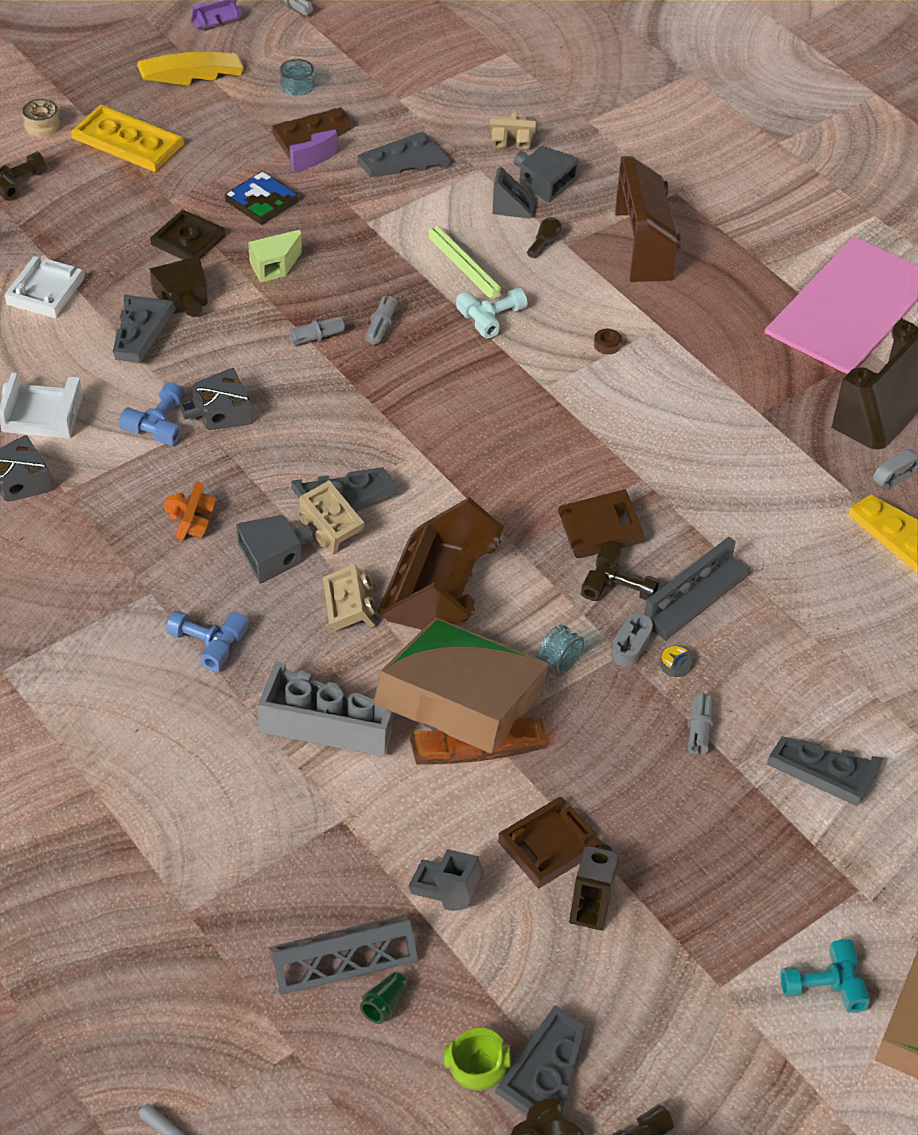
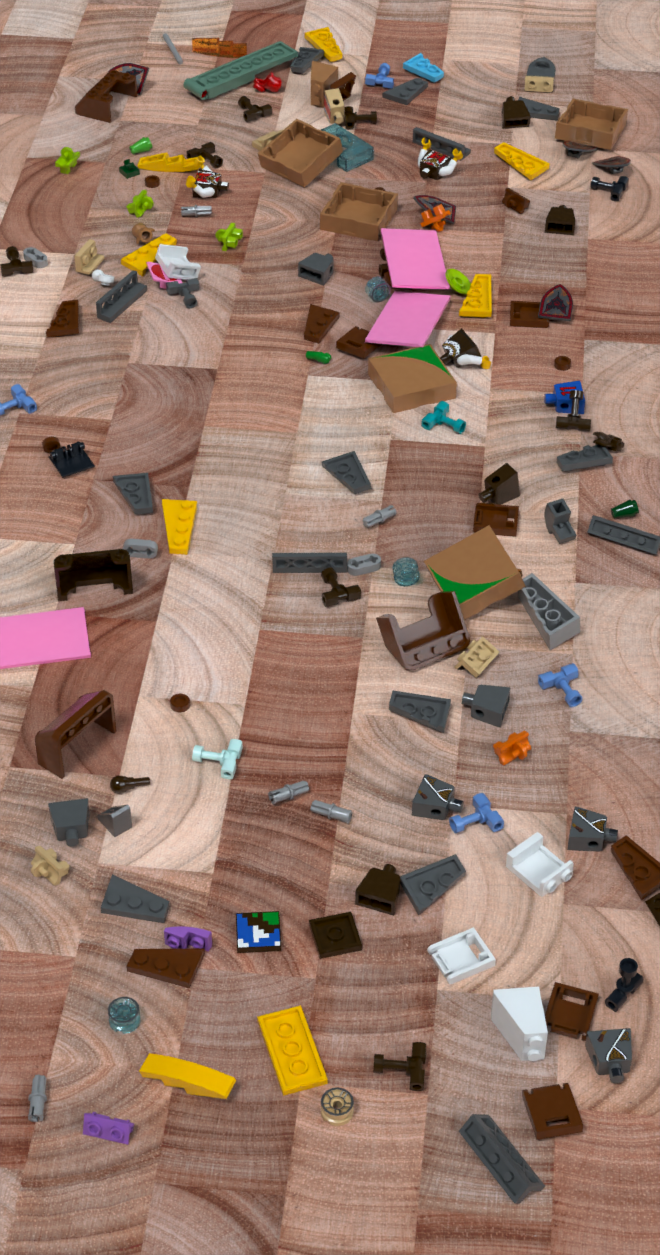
camera: 135 degrees left, 5 degrees down
(275, 255) = (301, 873): yellowish green slope -> none
(329, 516) = (447, 691): tan bracket -> none
(464, 262) = (200, 790): yellowish green axle -> none
(478, 1059) = (611, 465): lime cap -> none
(596, 521) = (315, 617): reddish brown container -> none
(675, 661) = (355, 545): dark grey tile -> none

